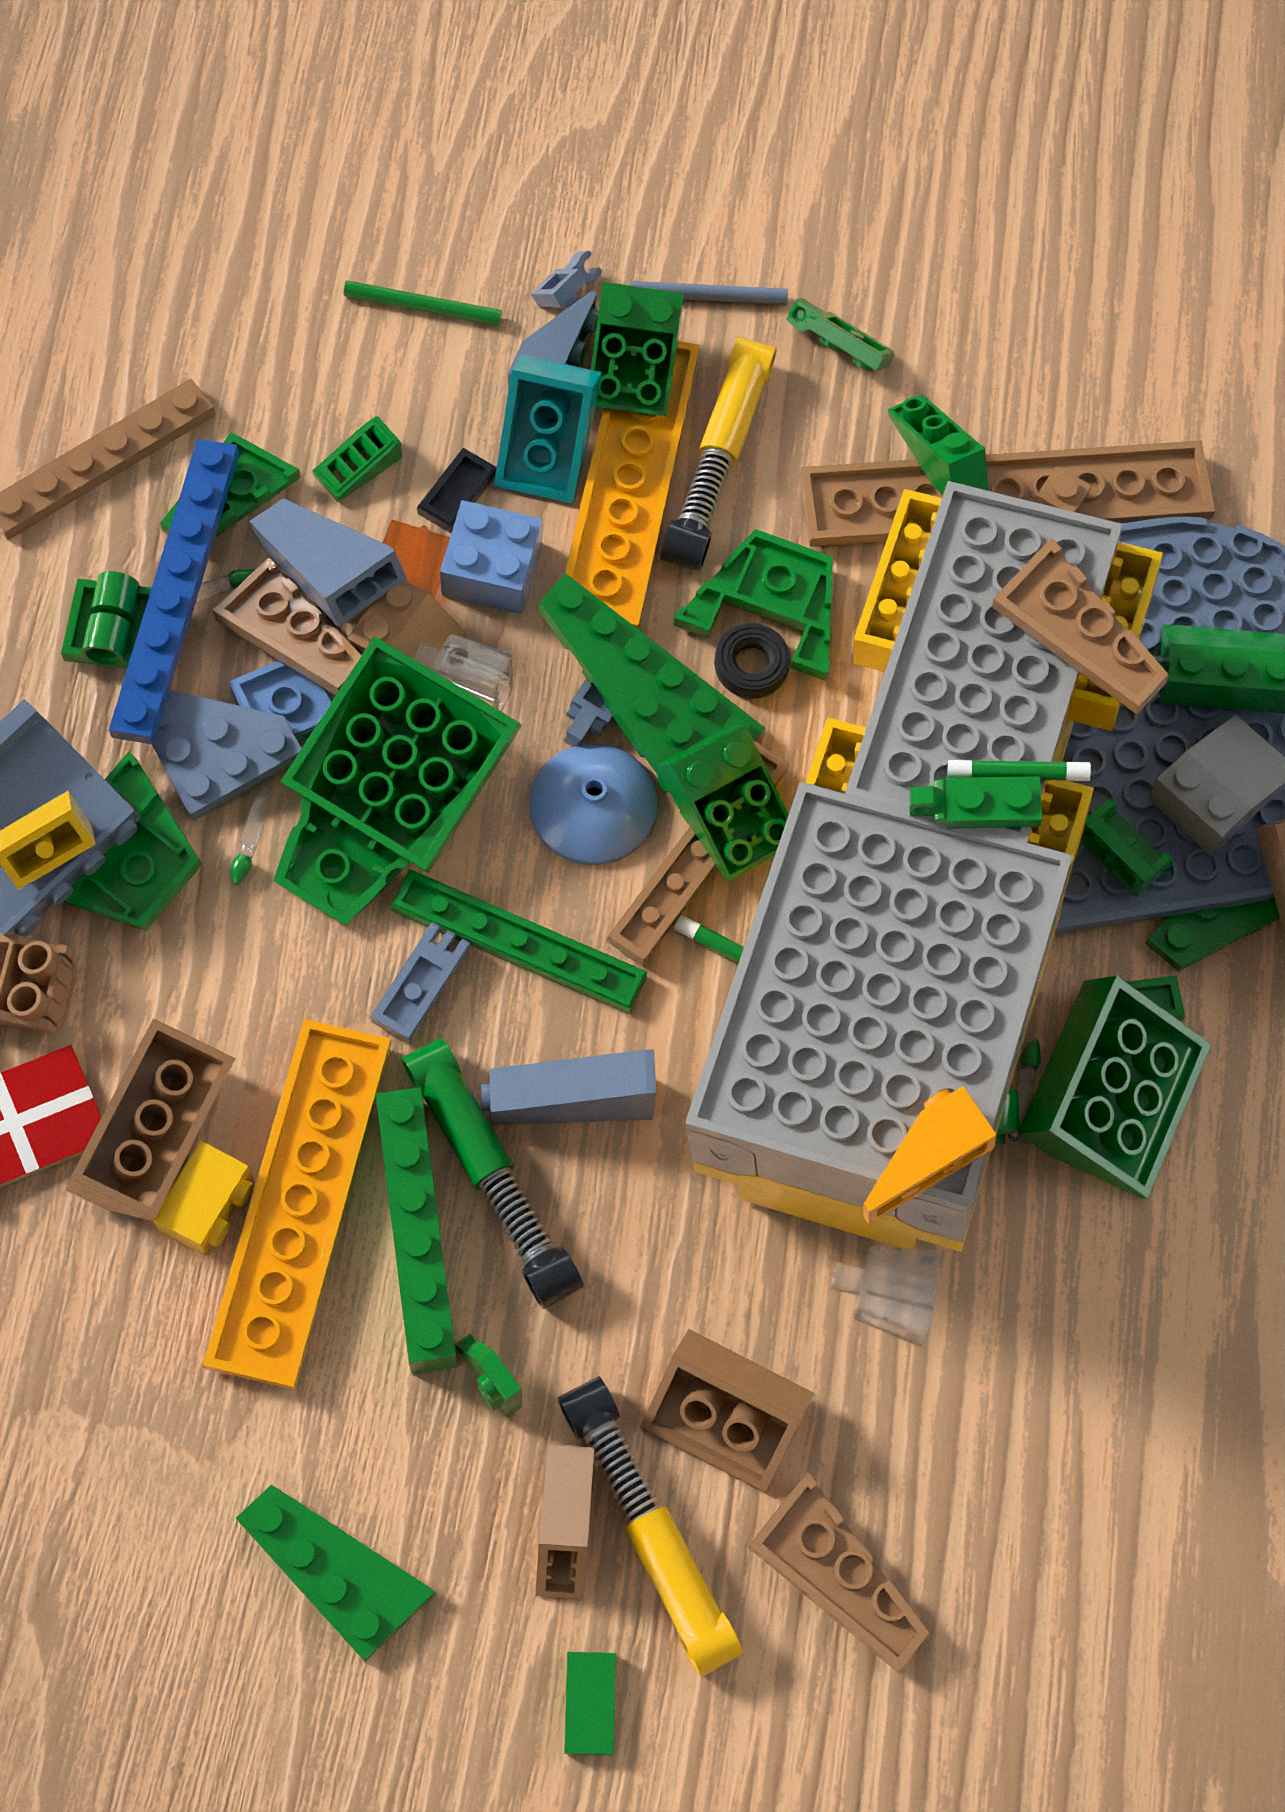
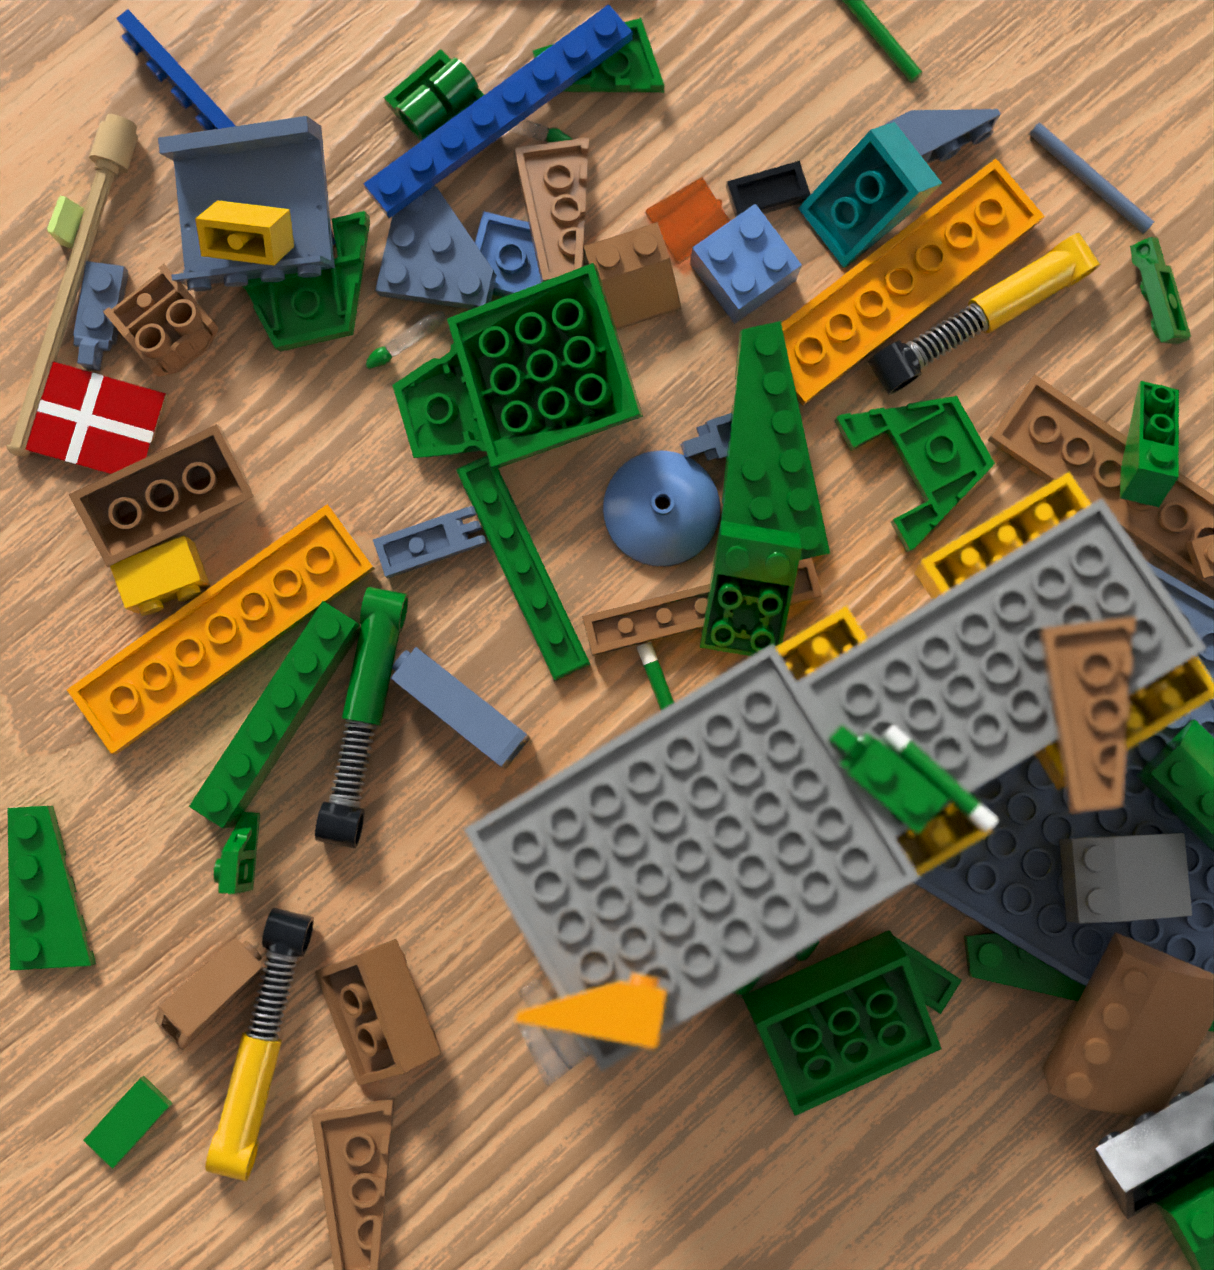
camera: 45 degrees right, 15 degrees up
(328, 560) = (619, 178): sand blue slope -> none
(361, 440) = (730, 123): green slope -> none
(472, 666) = (647, 343): clear torso -> none
(563, 283) = (983, 86): sand blue plate -> none
(636, 347) = (990, 182): green slope -> none
(743, 683) = (874, 471): black tyre -> none
(1123, 849) = (1006, 864): green hinge -> none

